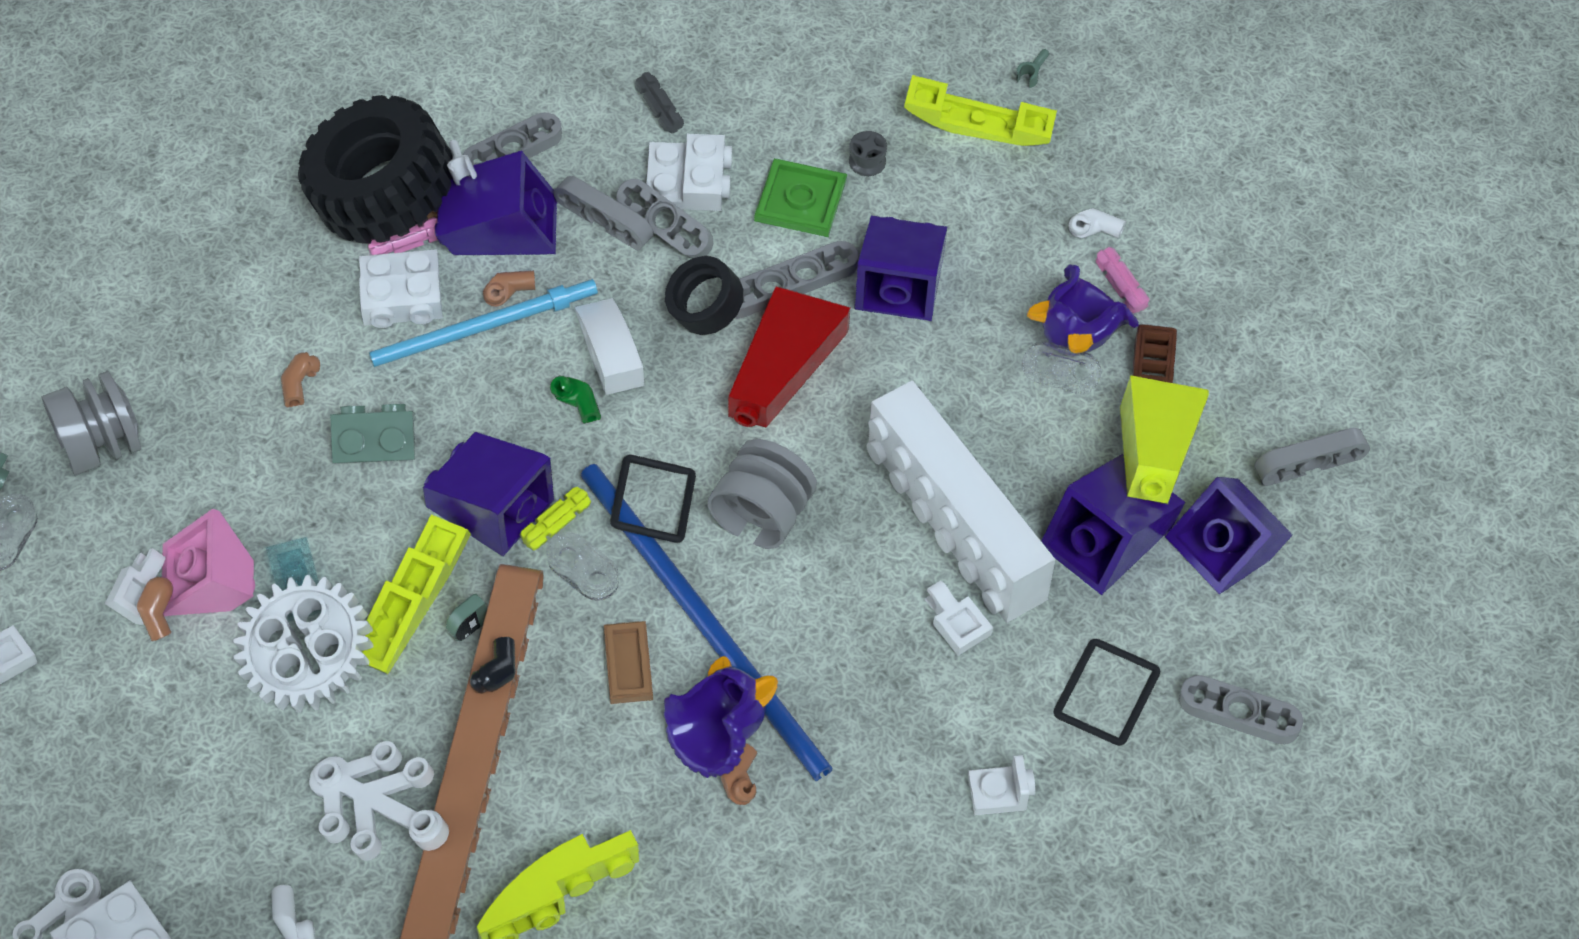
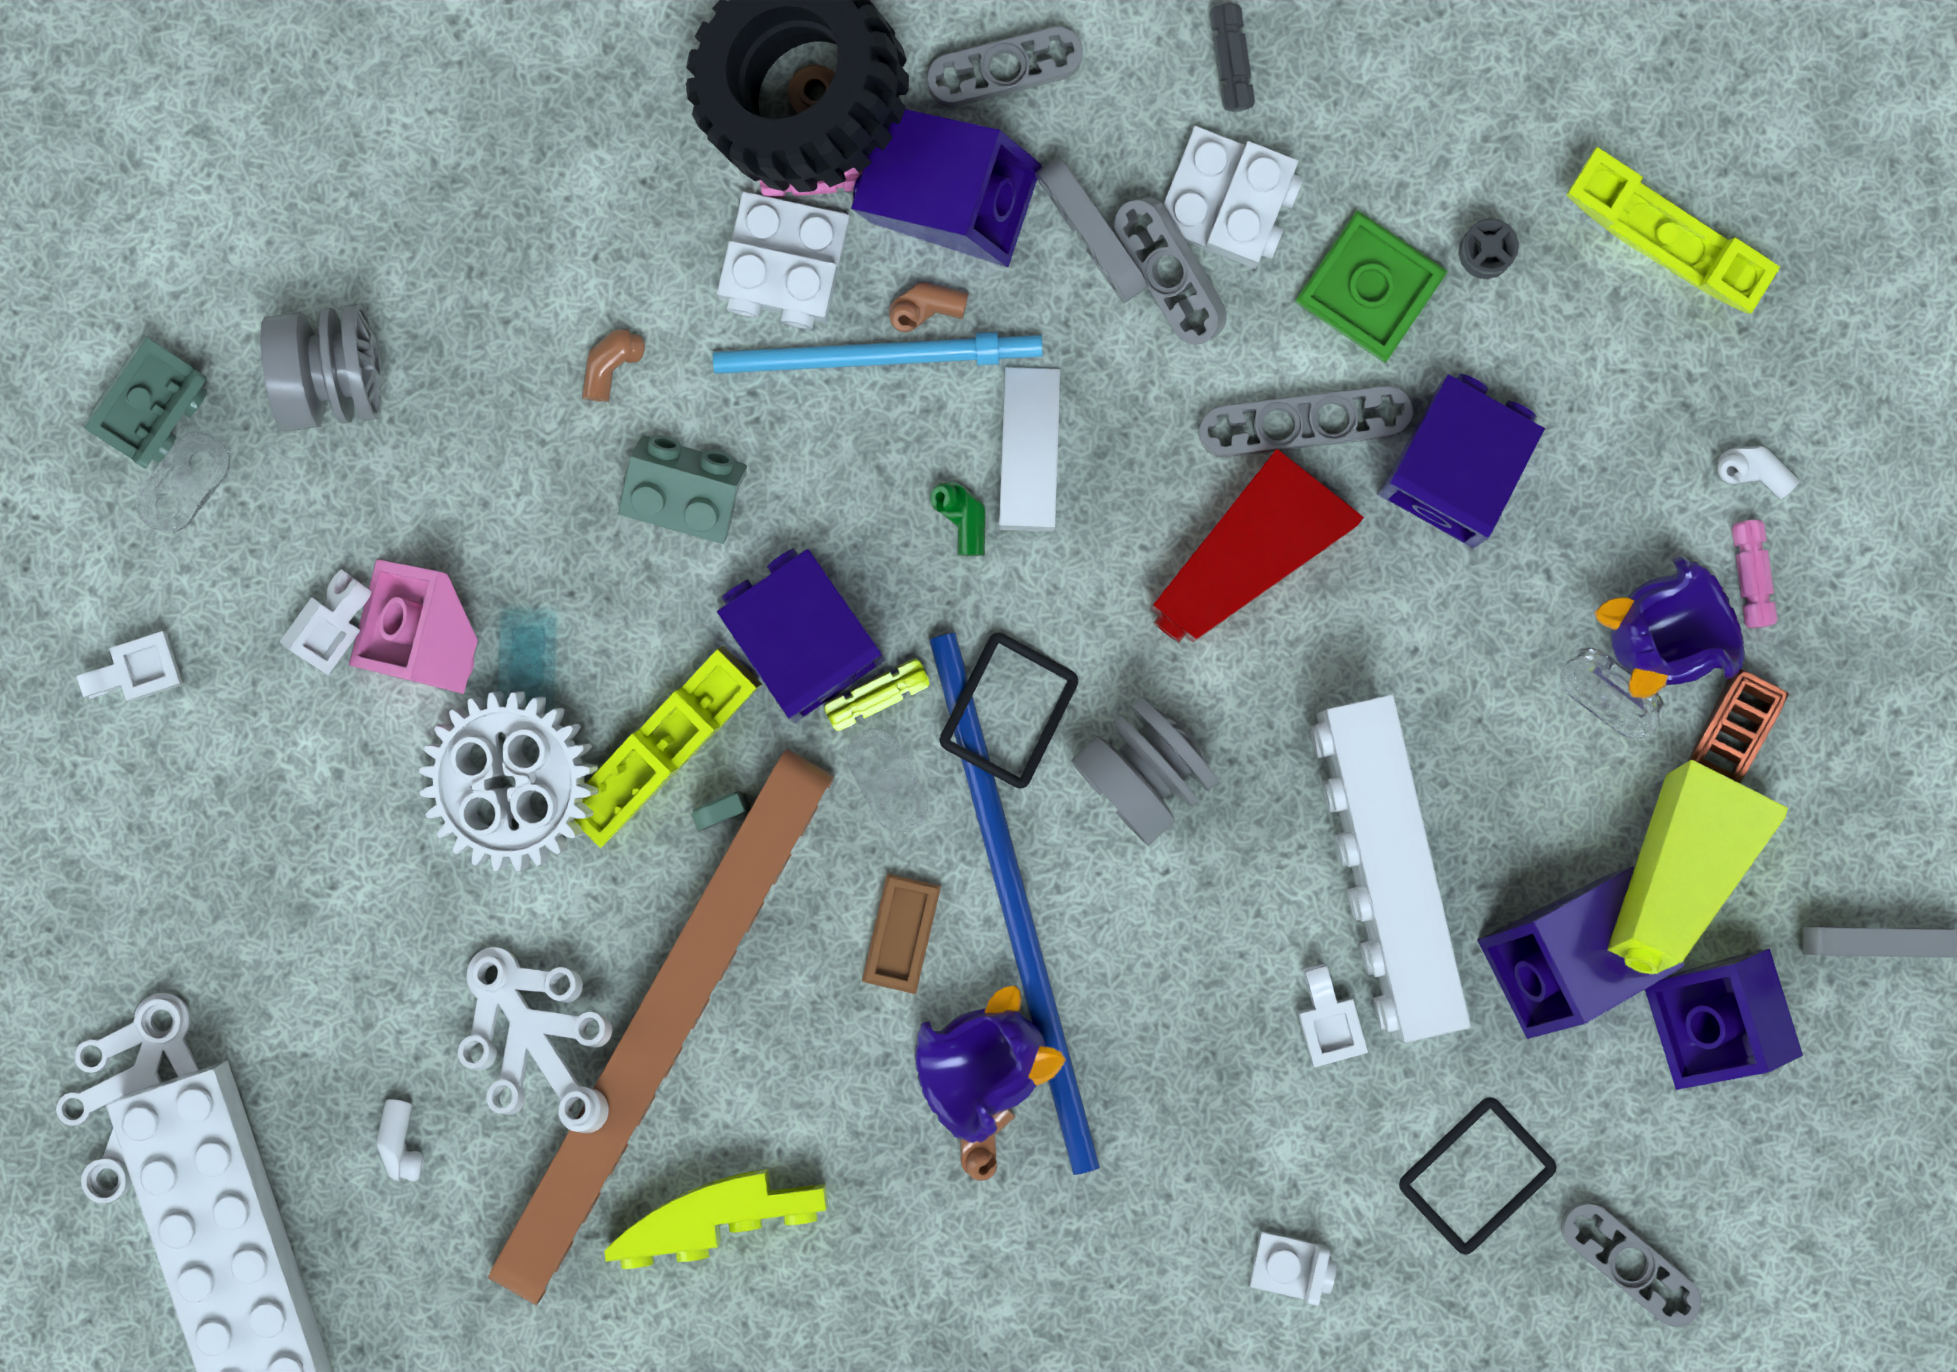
camera: 25 degrees right, 30 degrees up
(152, 605) = (339, 661): nougat arm -> none
(460, 164) = (911, 115): white hand -> none
(497, 671) = (731, 922): black arm -> none
(720, 312) = (1142, 410): black tyre -> none
(1032, 68) = (1784, 165): sand green hand -> none

